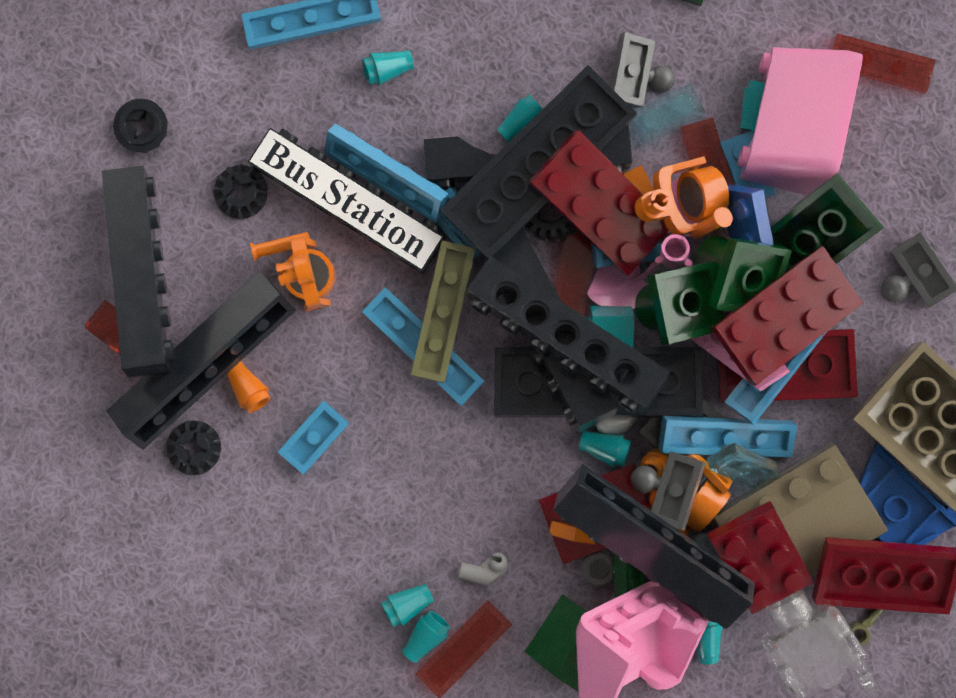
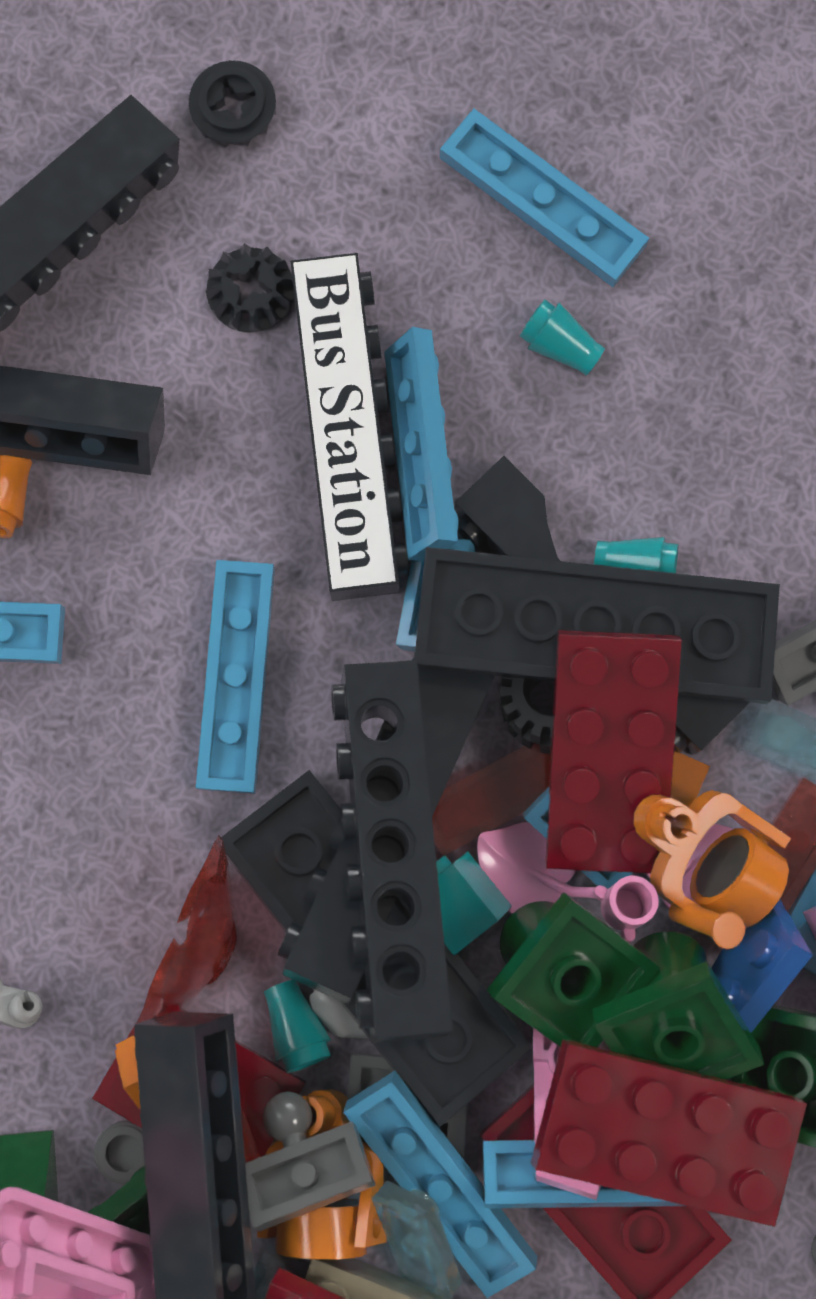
camera: 55 degrees right, 5 degrees down
(305, 273) = (207, 447): orange piece -> none
(443, 312) = (297, 663): olive plate -> none
(540, 473) = (207, 943): none -> clear red piece

